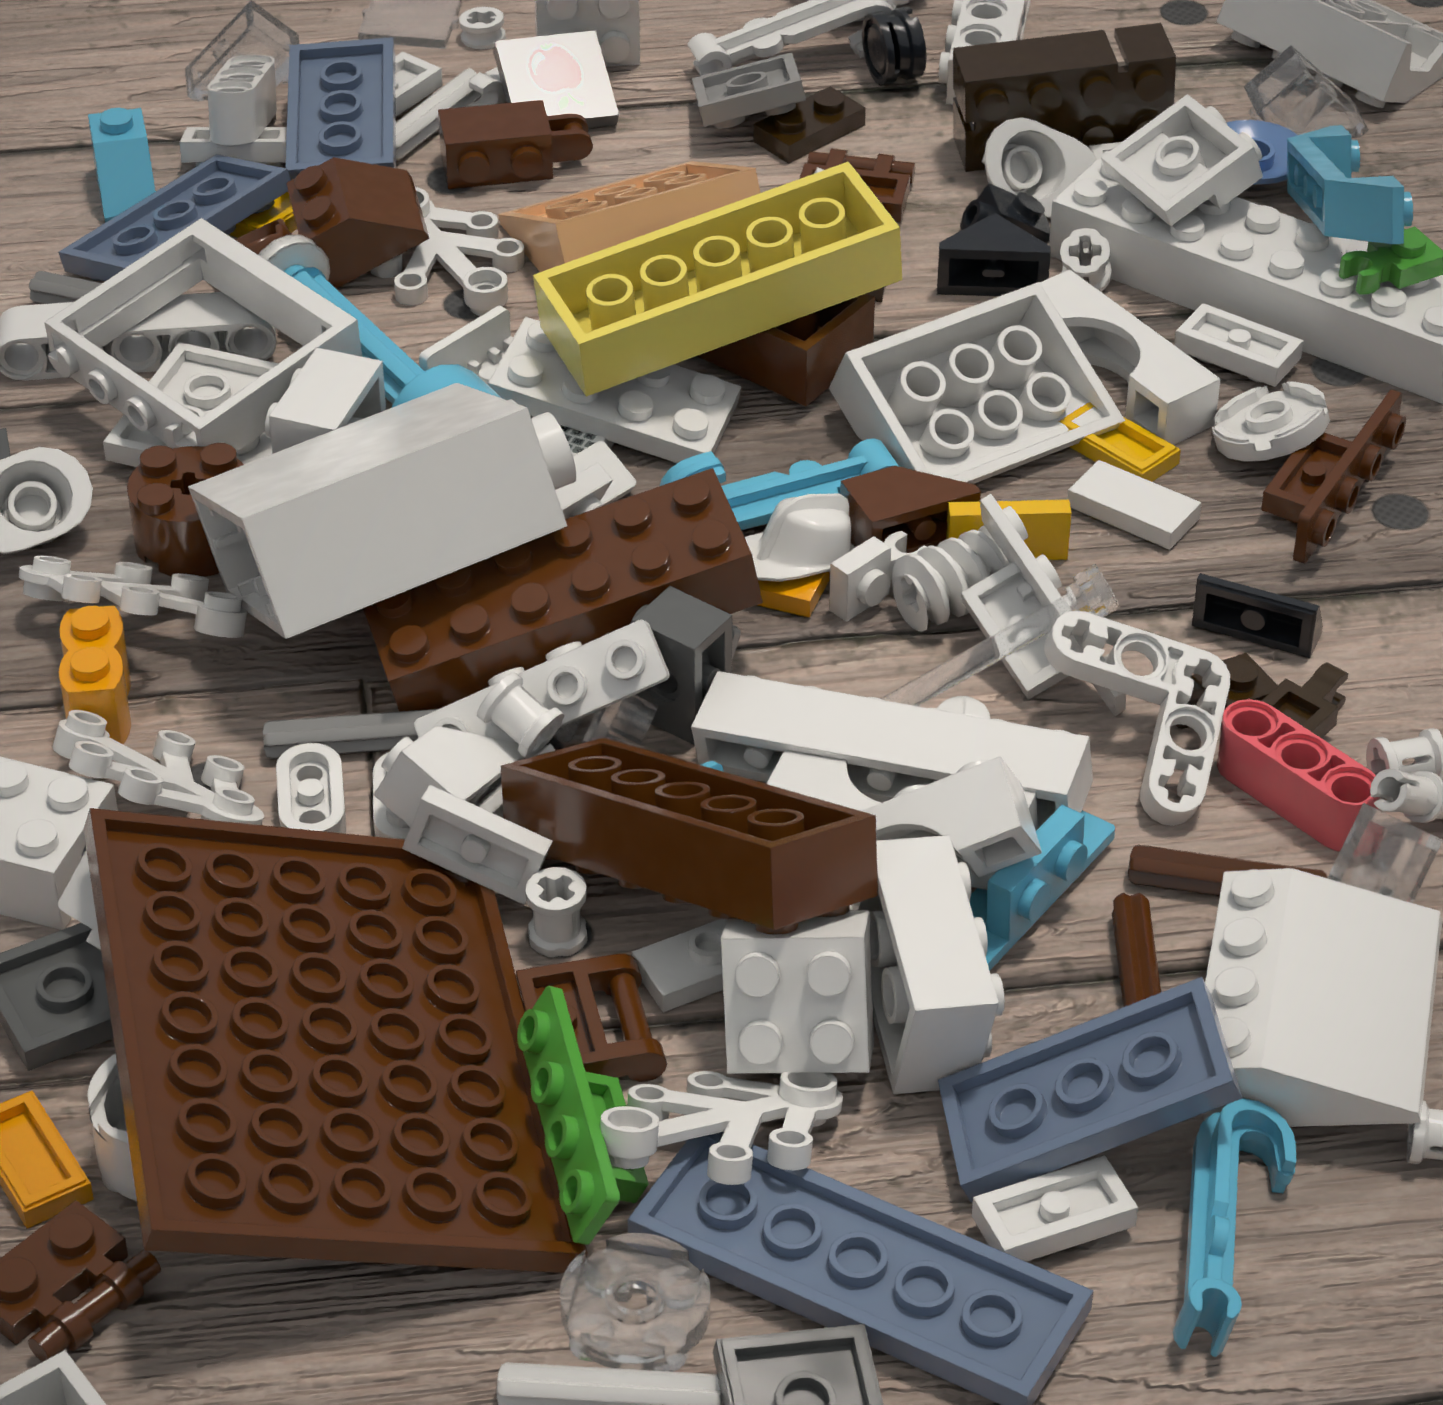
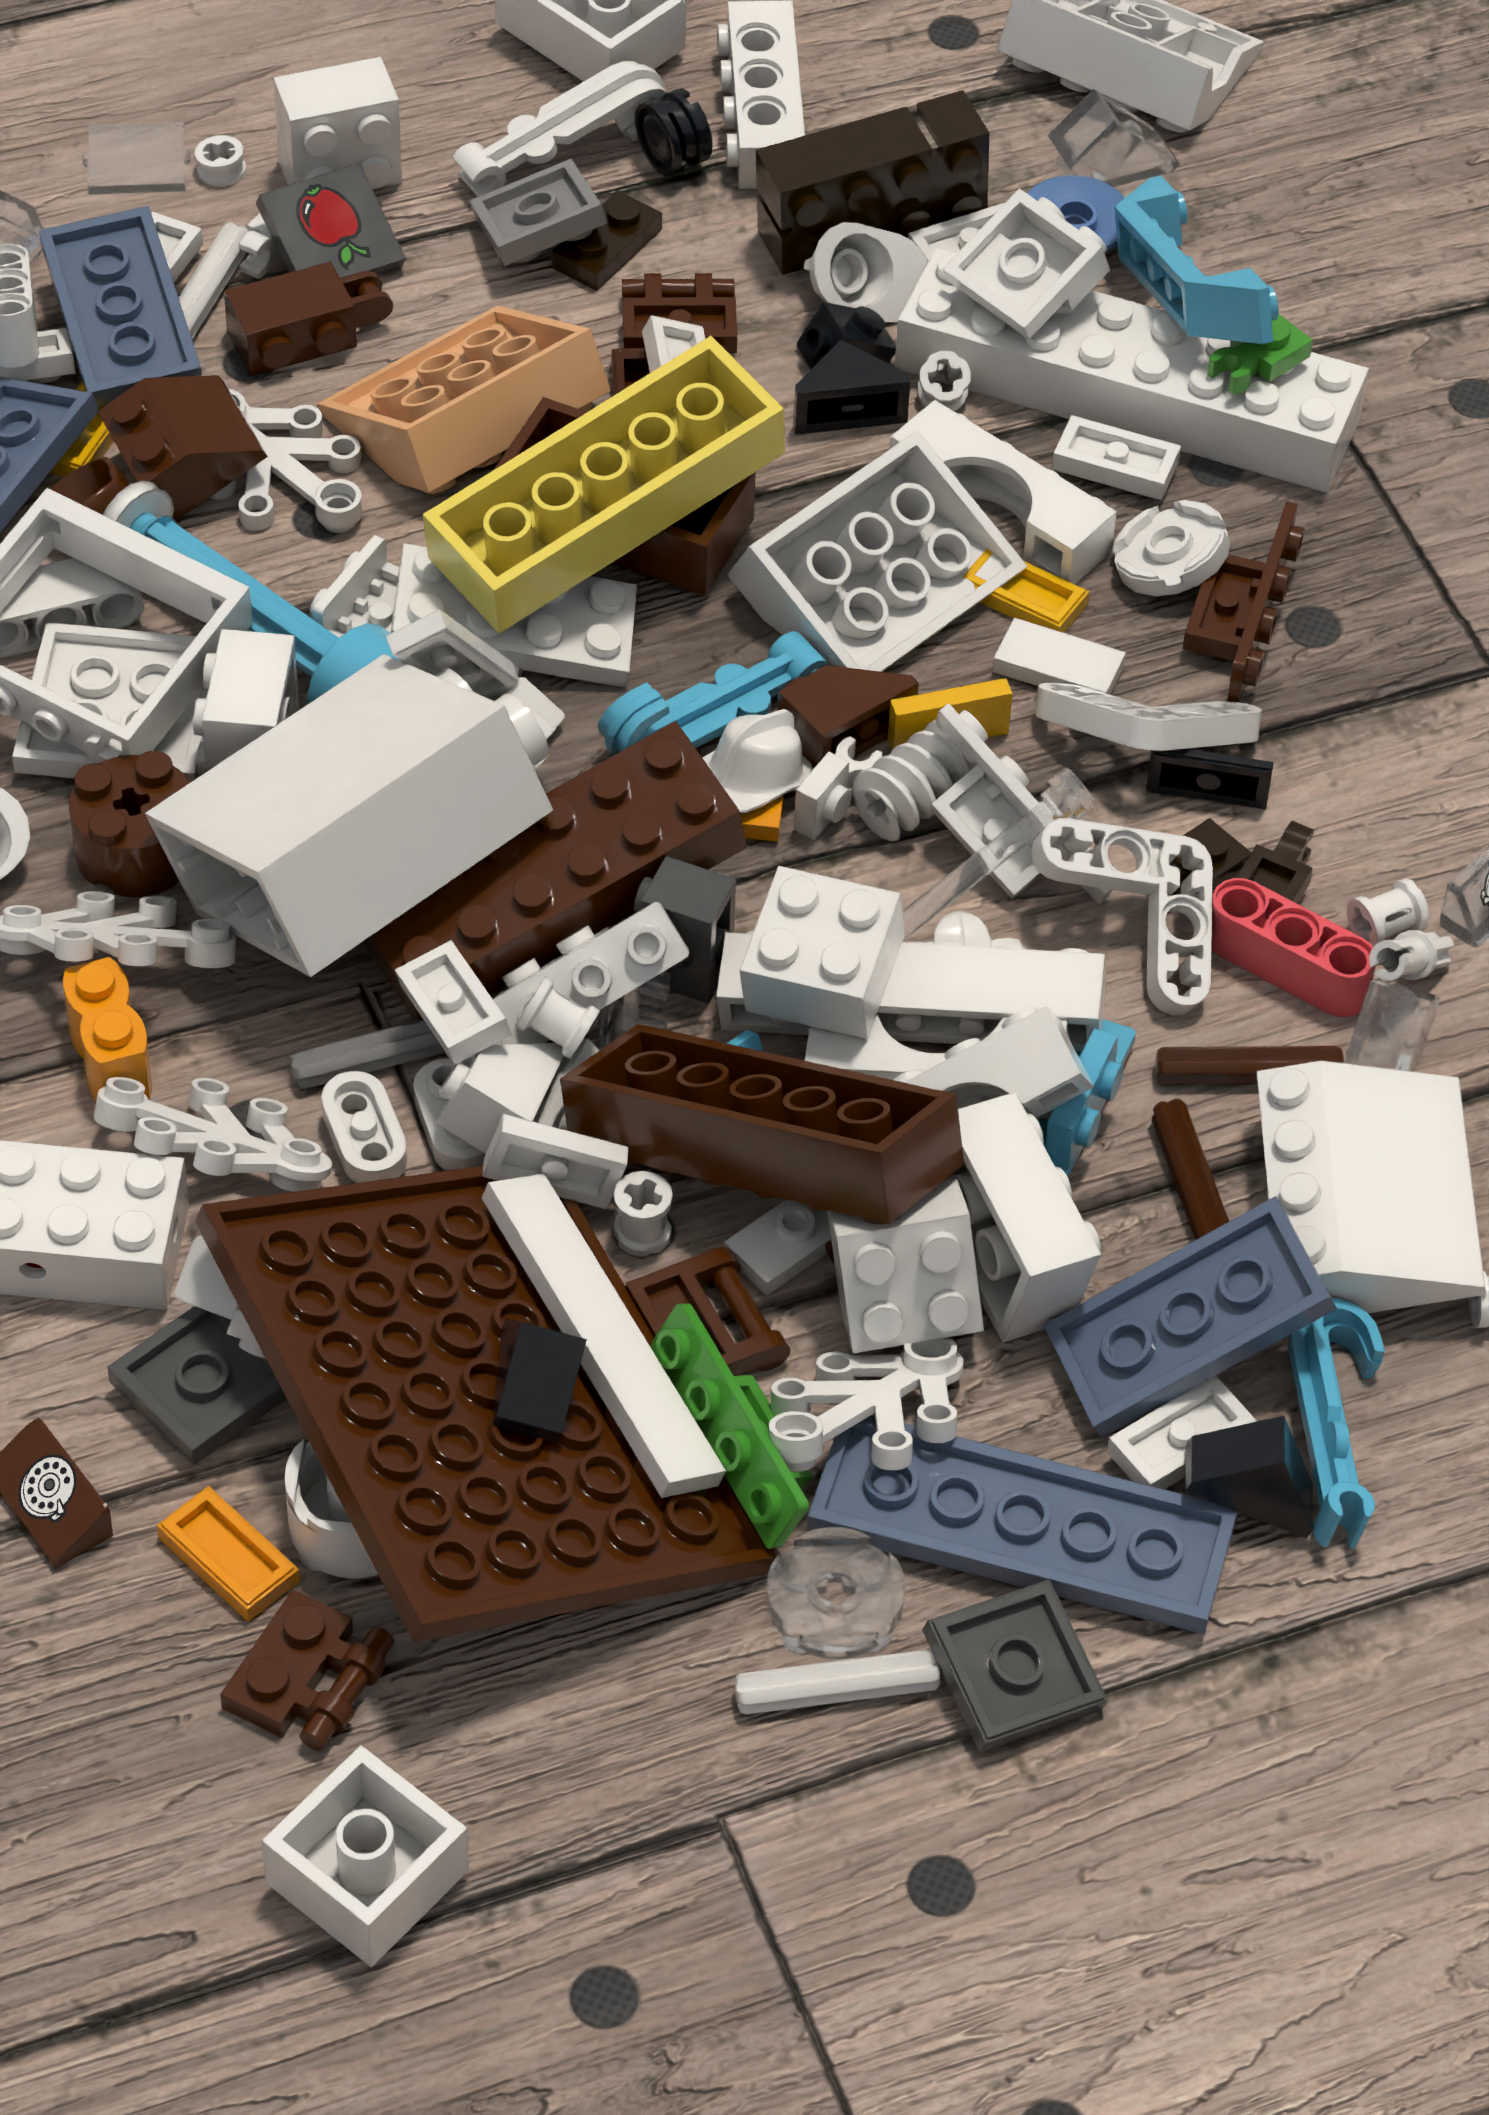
camera: 15 degrees left, 10 degrees up
(374, 1028) = (535, 1379): none -> black slope
(418, 683) = (453, 1002): none -> white plate
(470, 1013) = (615, 1349): none -> white tile
(510, 374) = (443, 643): none -> white tile
(799, 692) = (822, 952): none -> white brick
(1121, 1256) = (1254, 1473): none -> black slope
(1208, 557) = (1145, 726): none -> white beam

